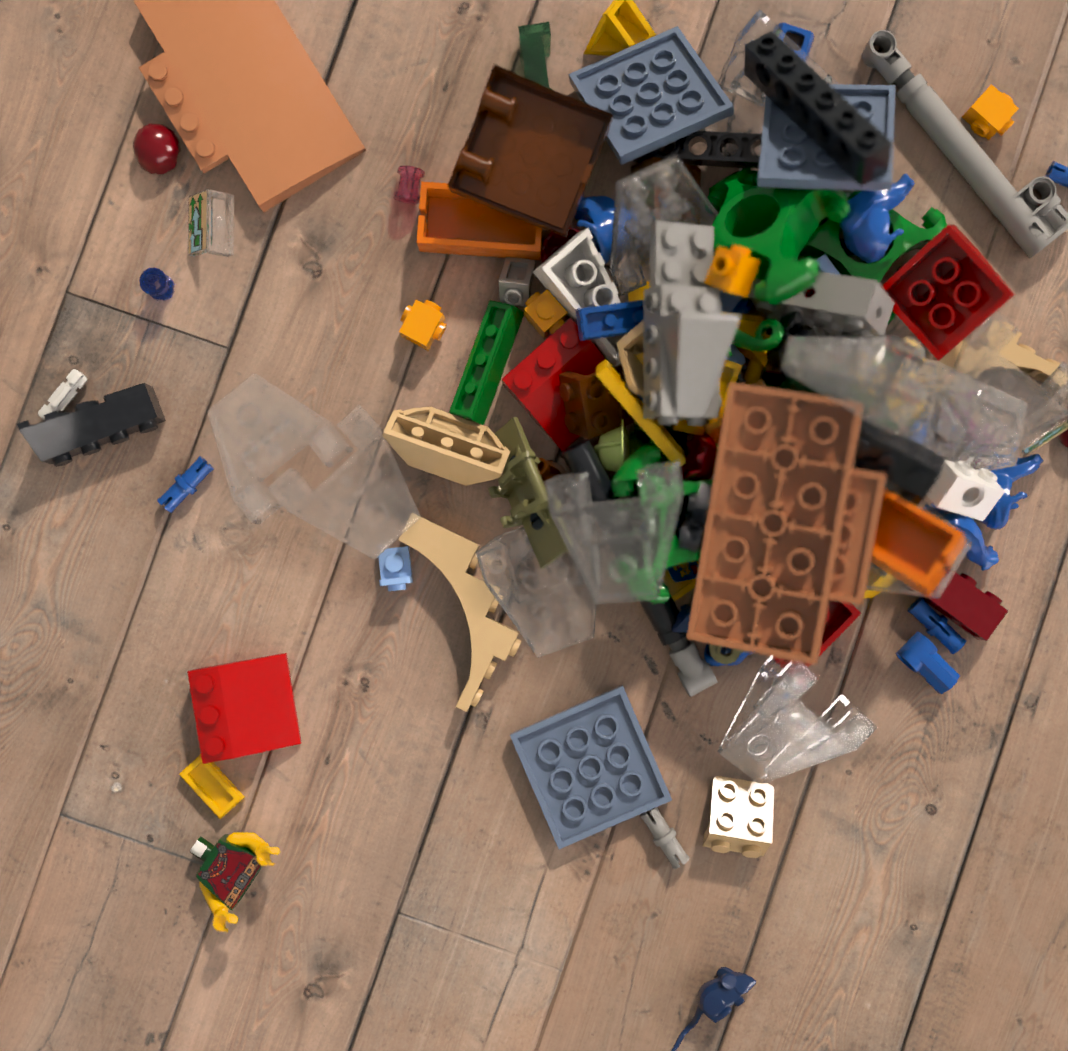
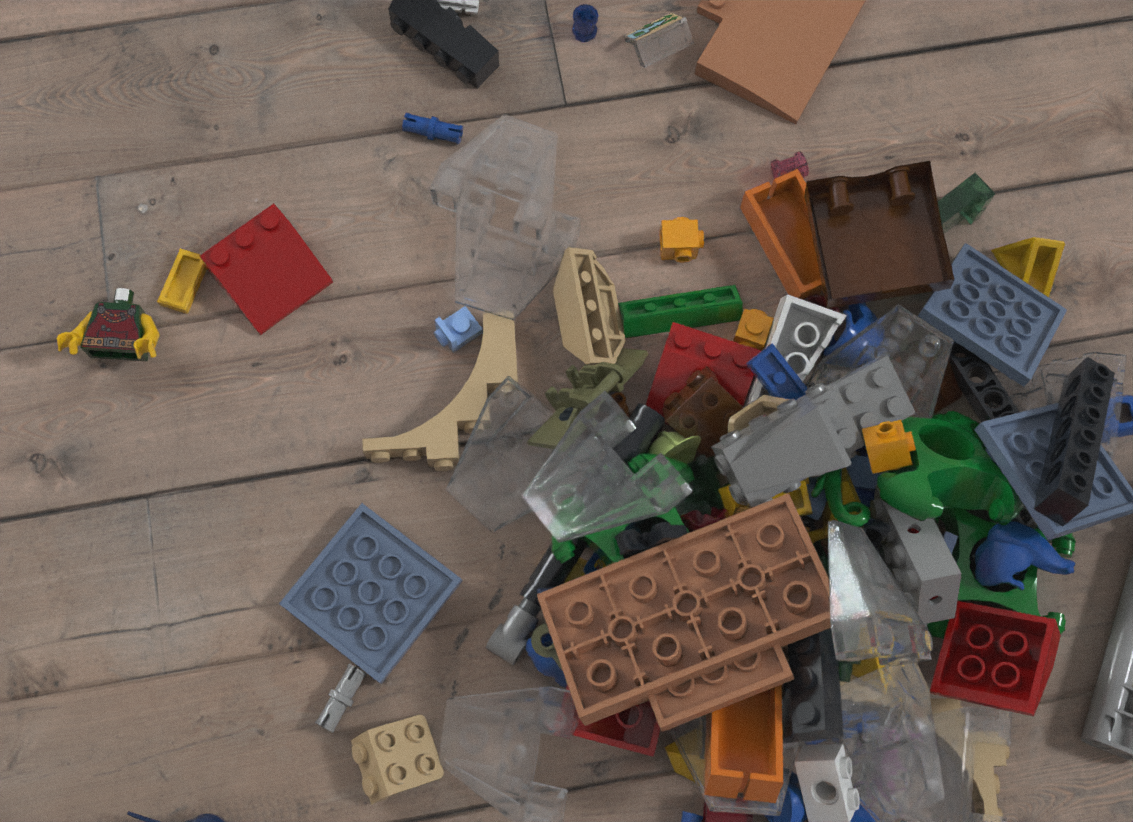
camera: 55 degrees right, 15 degrees down
(516, 281) = (763, 293): light grey bracket -> none
(634, 407) = (707, 468): yellow tile -> none

